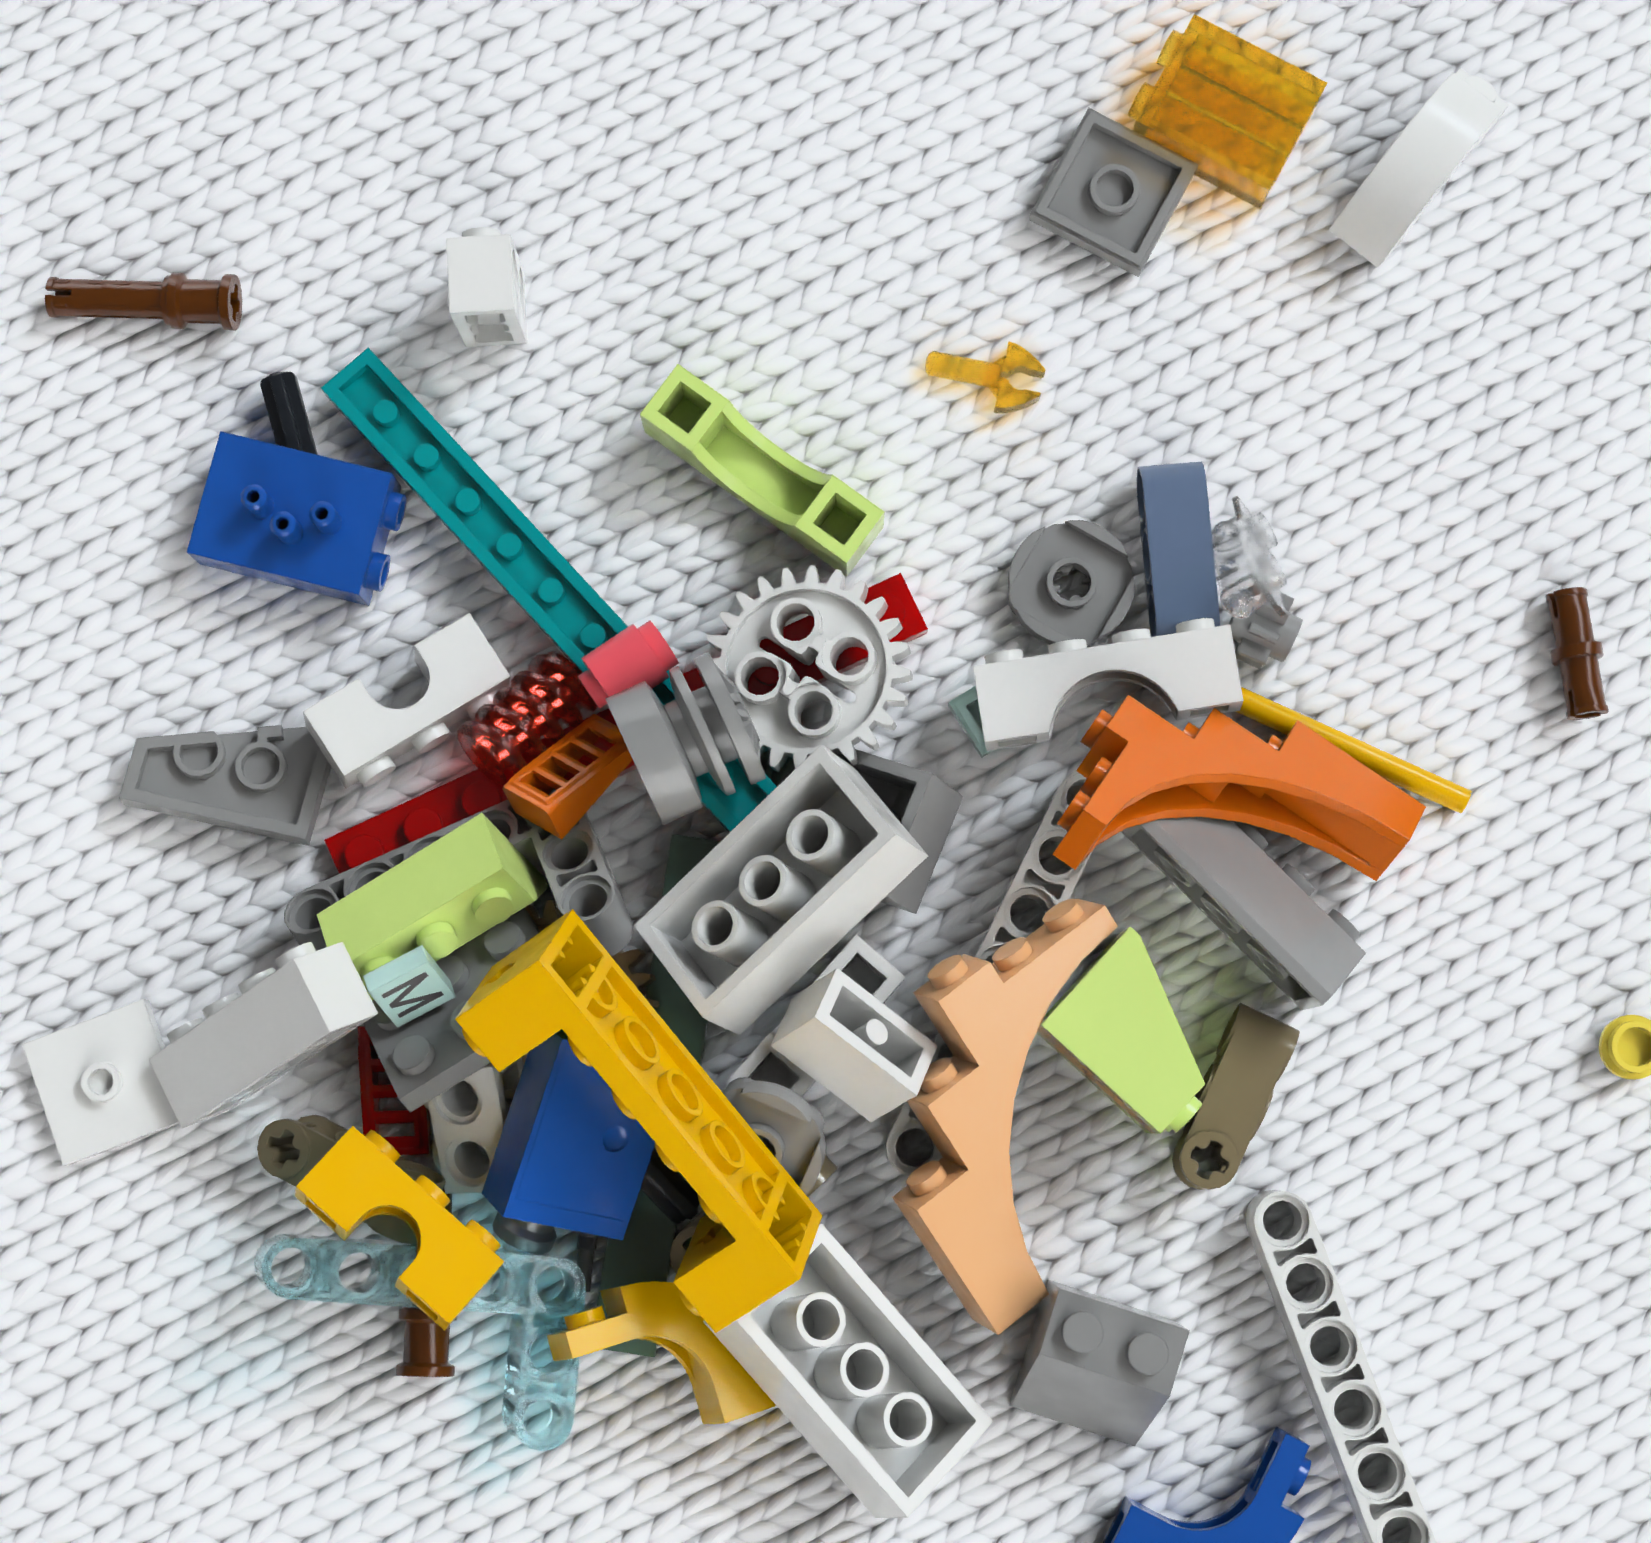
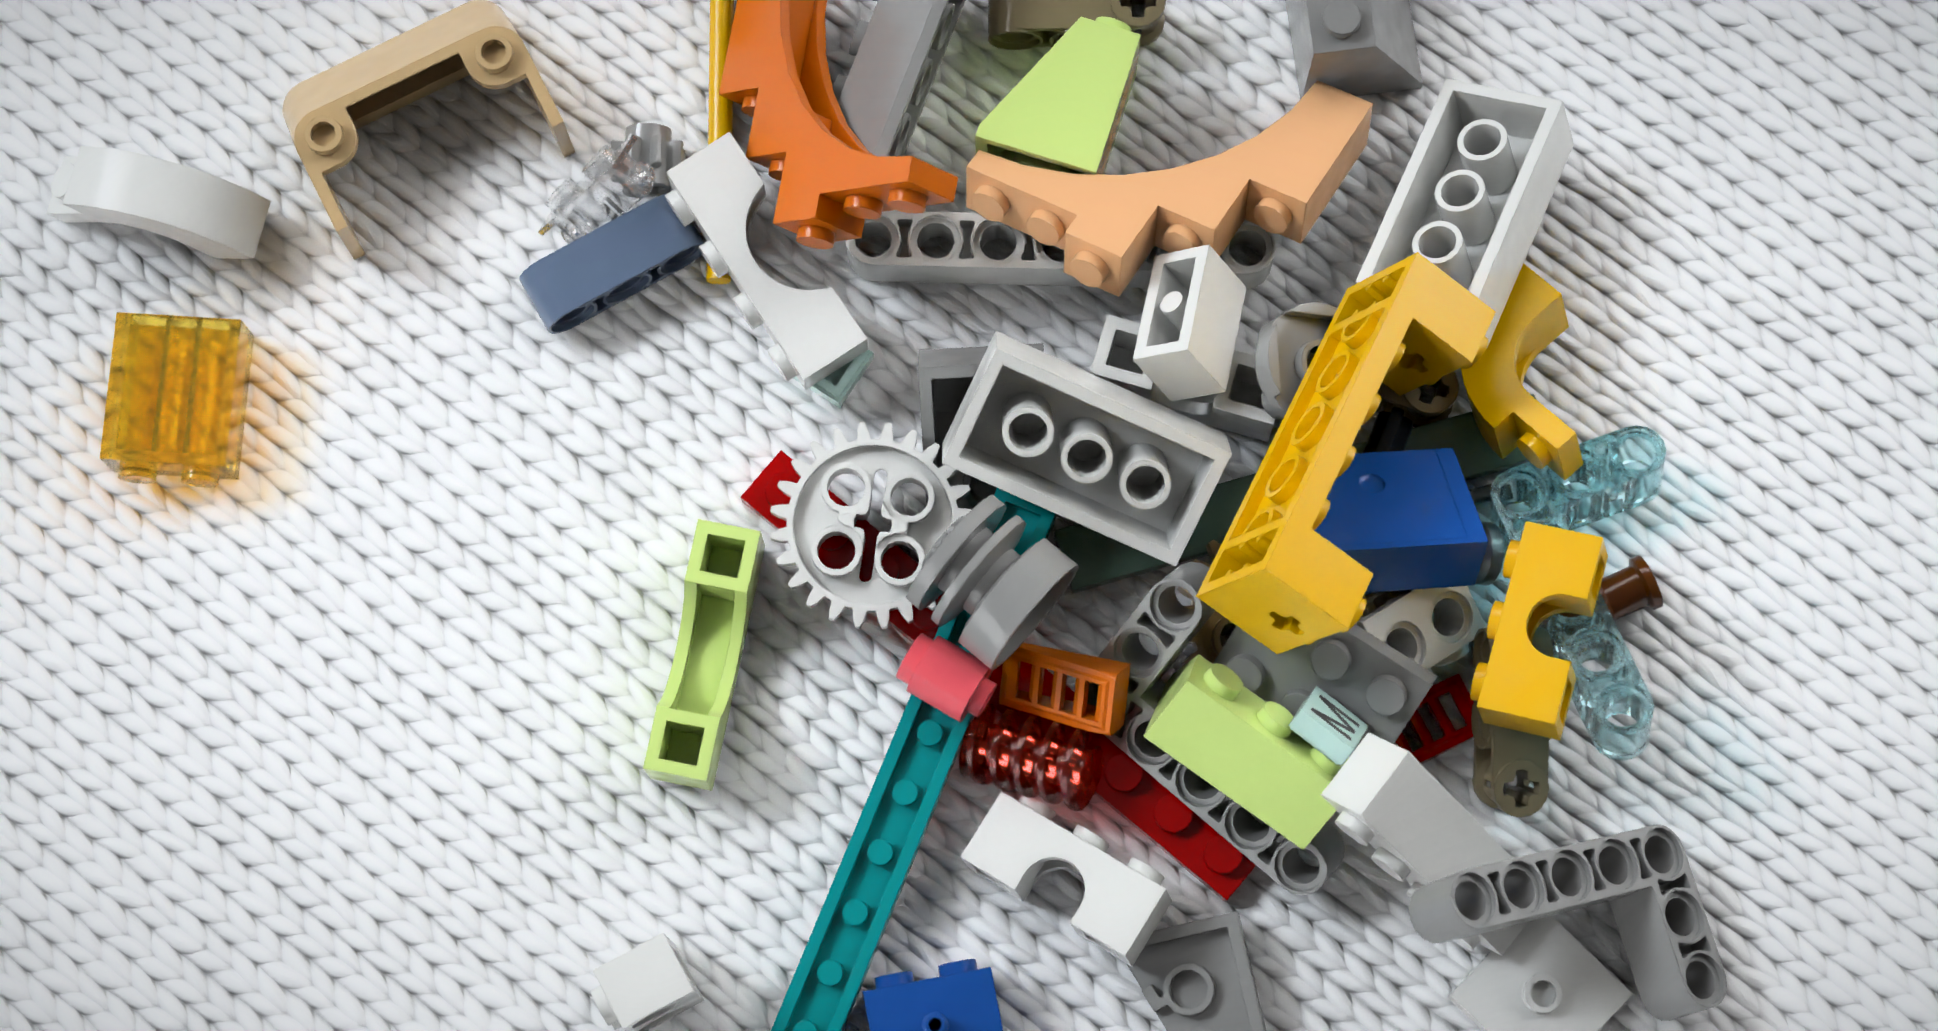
camera: 115 degrees left, 5 degrees down
(166, 1210) = (1635, 871): none -> light grey beam
(991, 375) = (518, 504): clear yellow bar -> none
(1059, 550) = (657, 370): light grey plate -> none
(1113, 192) = (297, 466): light grey plate -> none
(1457, 512) = (335, 103): none -> tan windscreen

